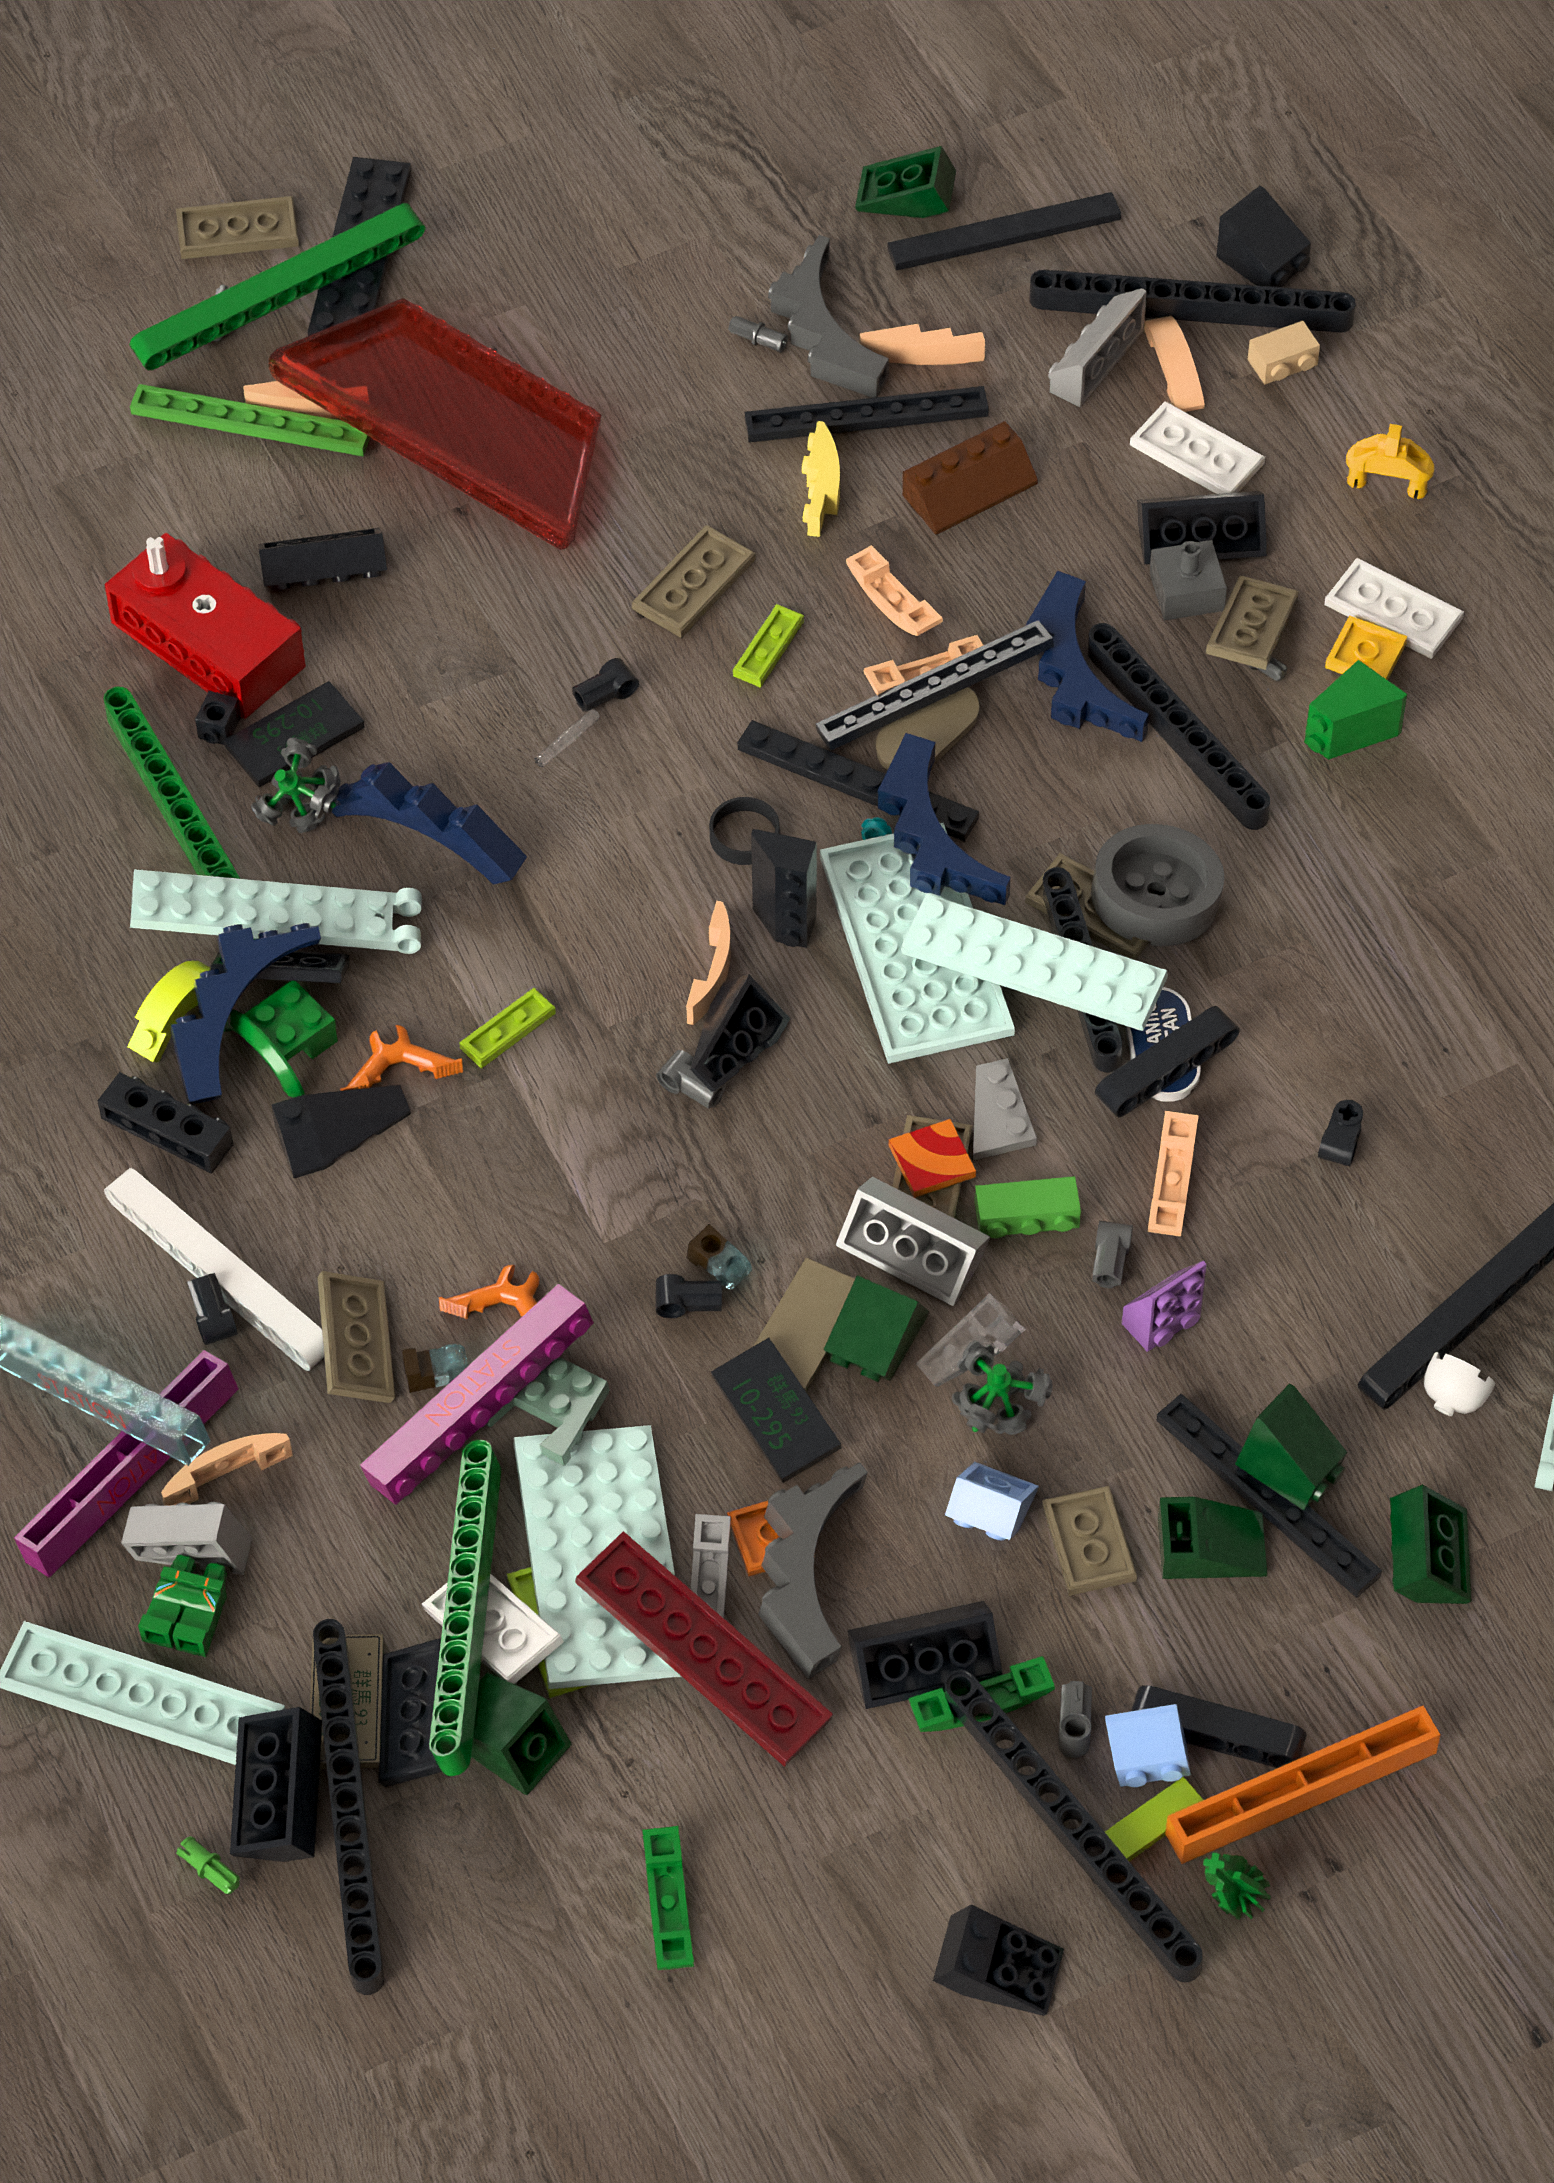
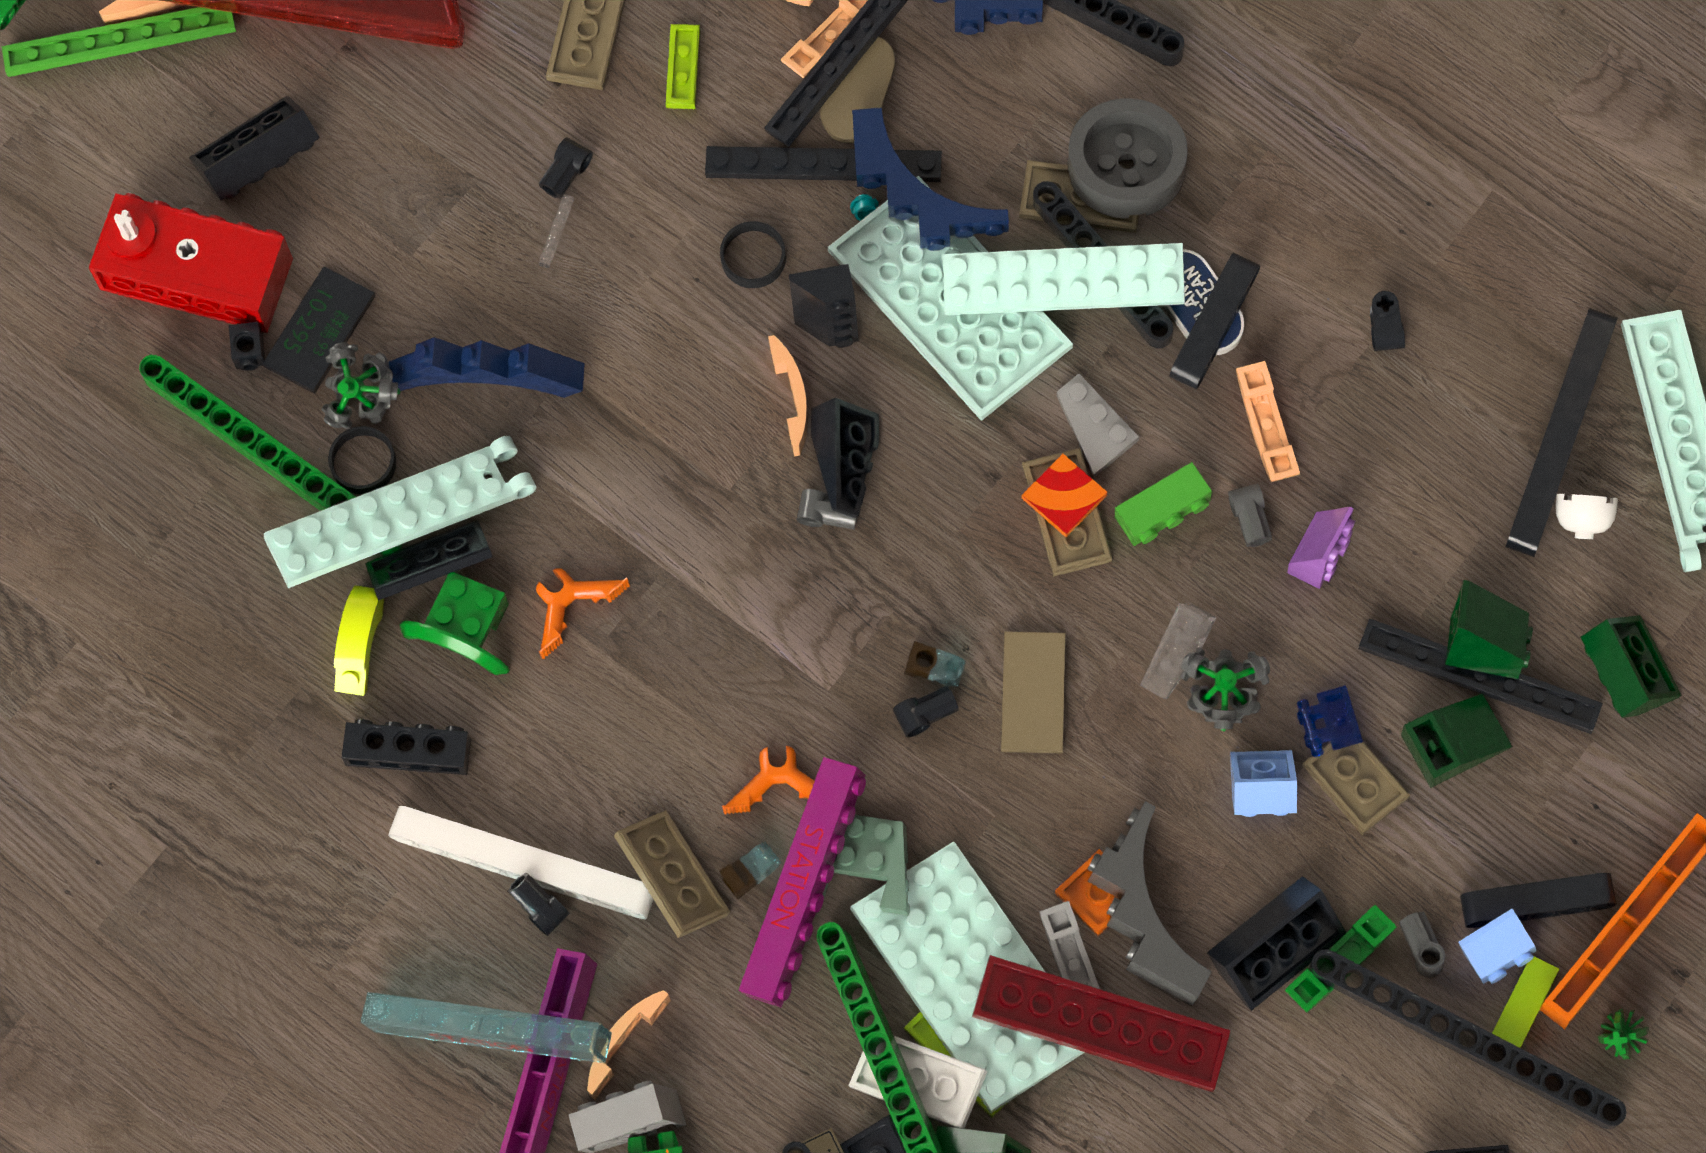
camera: 20 degrees left, 15 degrees up
(243, 960) = (406, 578): dark blue arch -> none
(271, 833) = (349, 434): none -> black tyre
(328, 1124) = (548, 686): black wedge -> none
(507, 1028) = (647, 528): lime tile -> none
(776, 1410) = (1049, 781): black tile -> none
(874, 1329) = (1096, 674): dark green slope -> none
(912, 1240) = (1087, 579): light grey slope -> none
(1099, 1472) = (1339, 719): none -> clear blue plate

